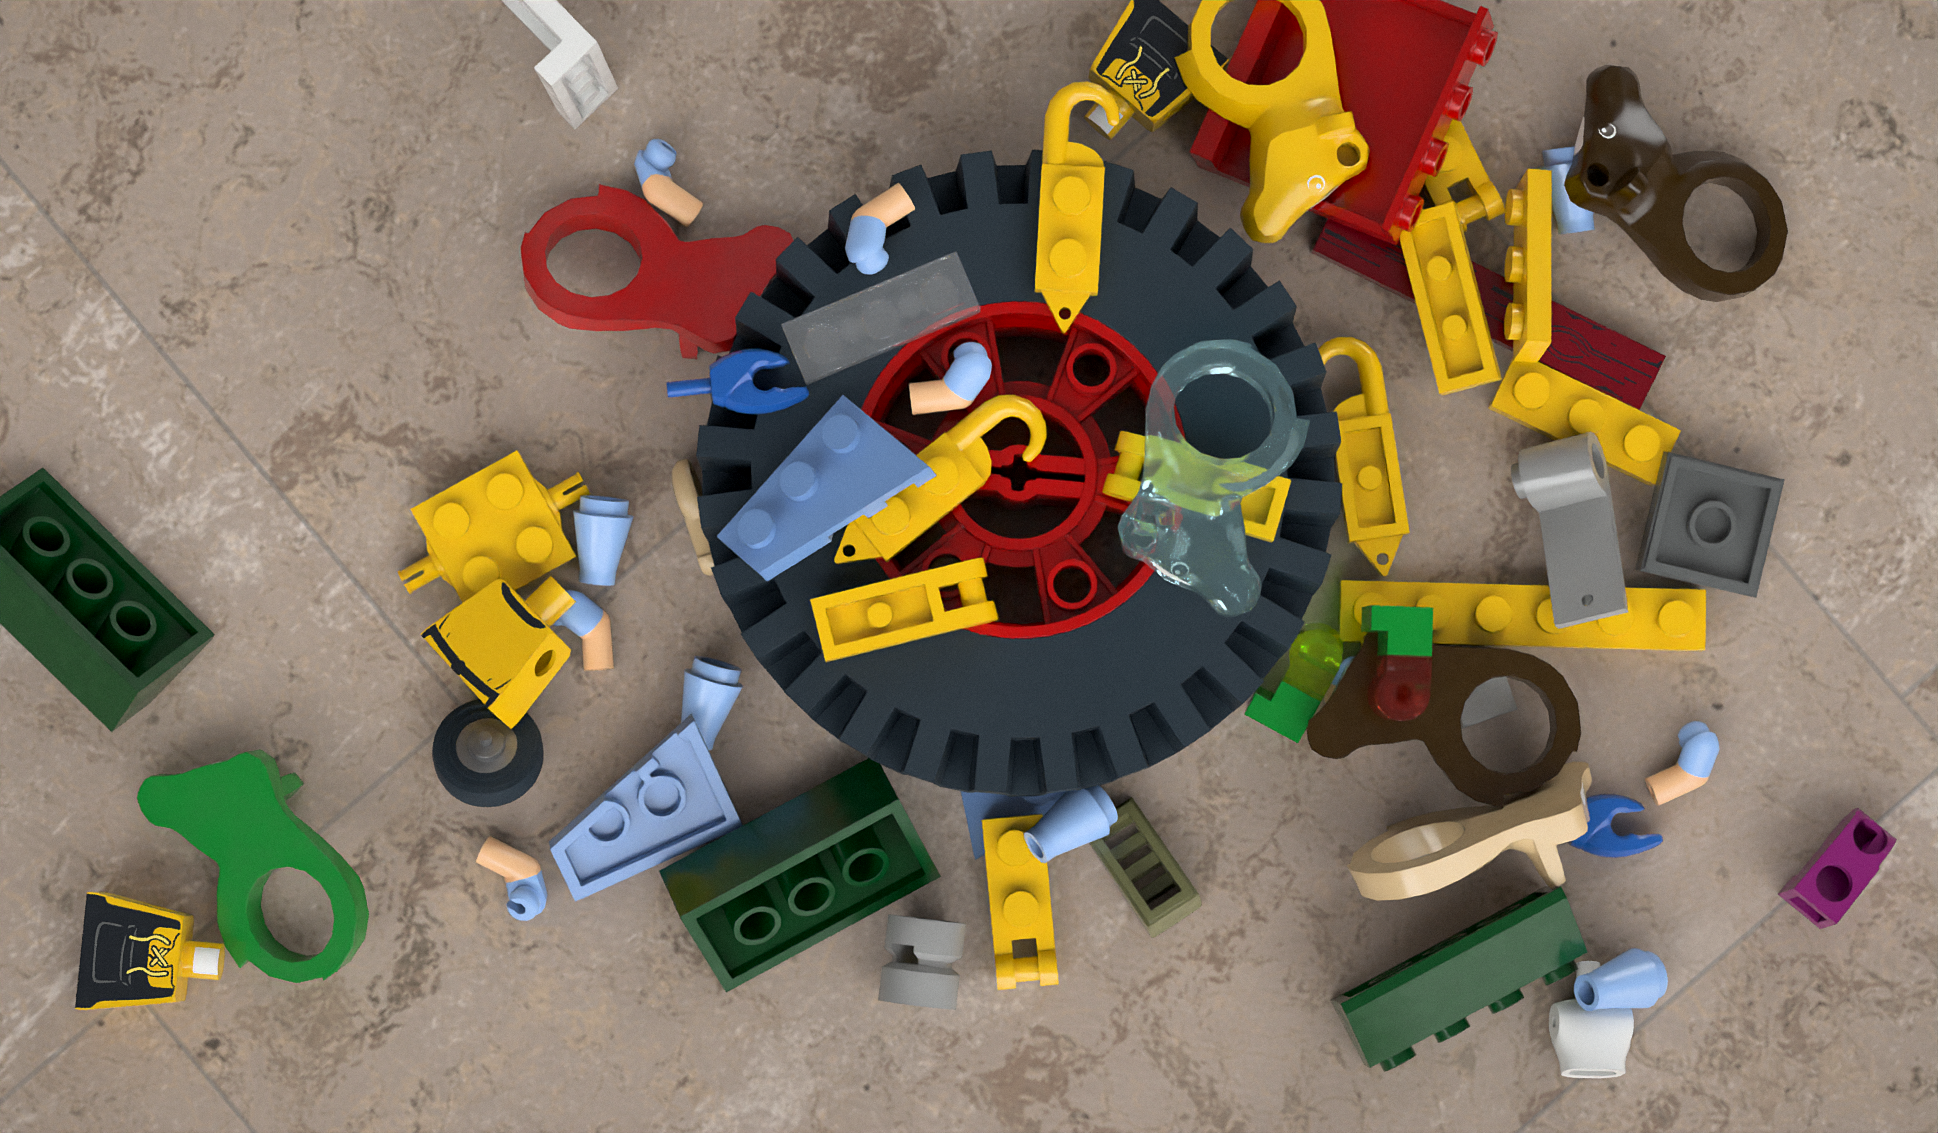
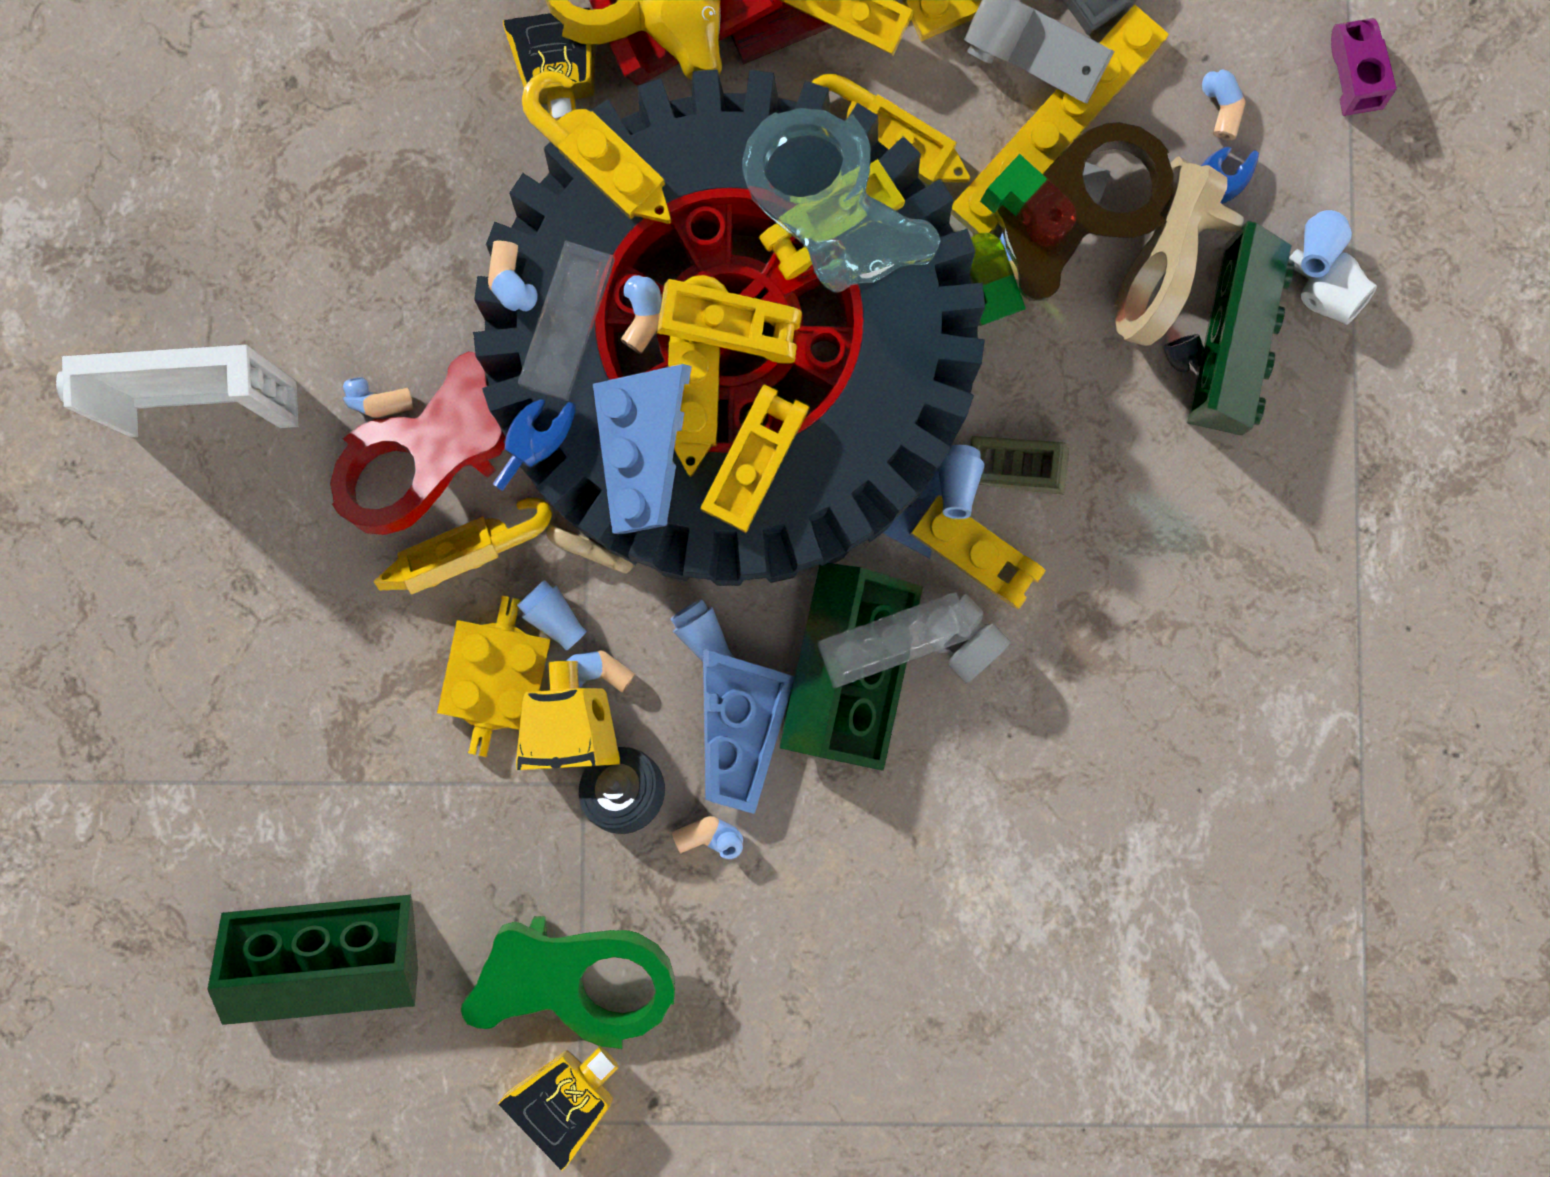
camera: 50 degrees left, 0 degrees up
(587, 394) = (461, 549): none -> yellow plate
(855, 892) = (894, 639): none -> clear plate
(1010, 472) = (728, 320): none -> yellow plate
(1398, 935) = (1185, 351): none -> black hinge

